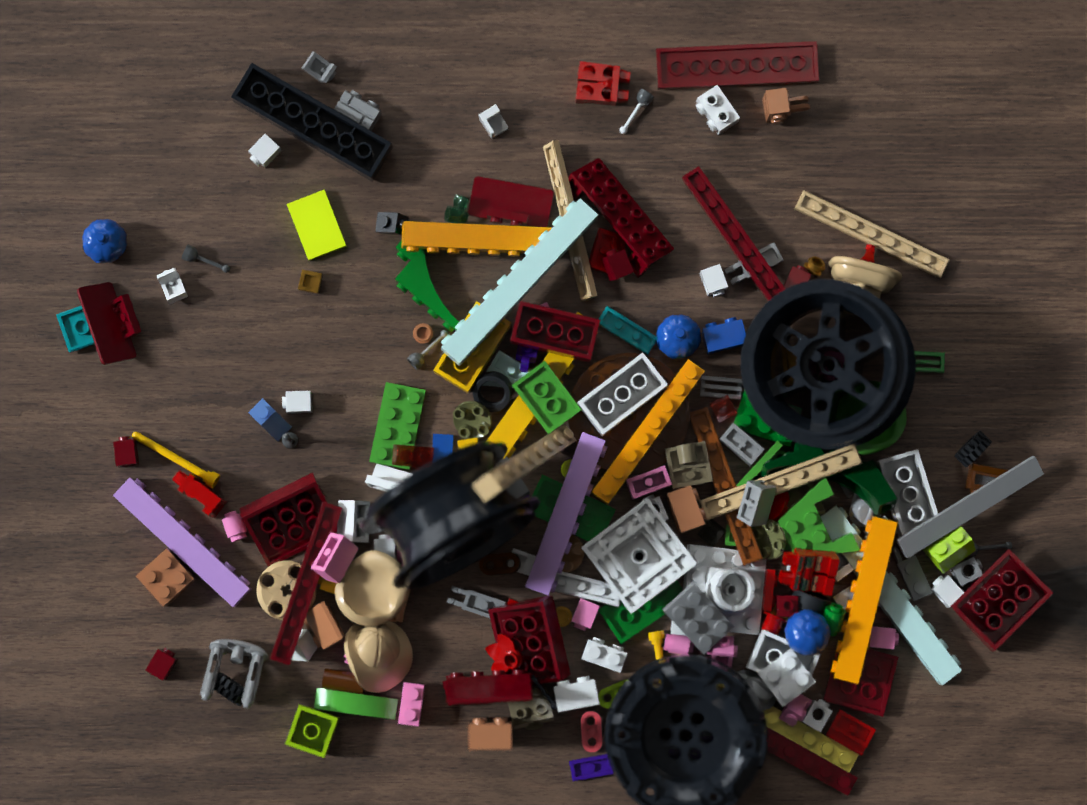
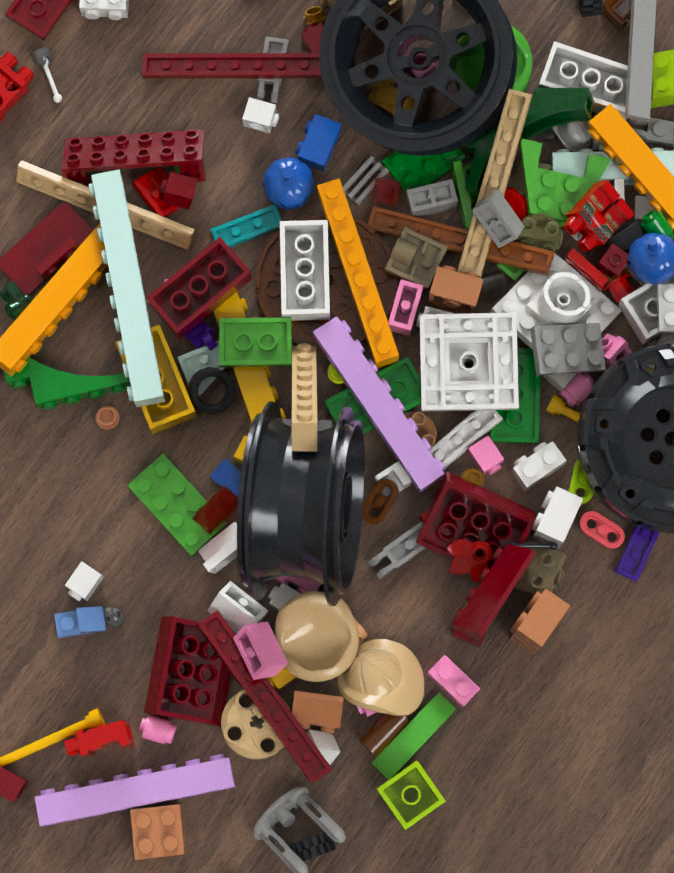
camera: 50 degrees left, 5 degrees down
(417, 359) = (127, 441): hinge -> none
(472, 420) = (224, 429): olive dish -> none

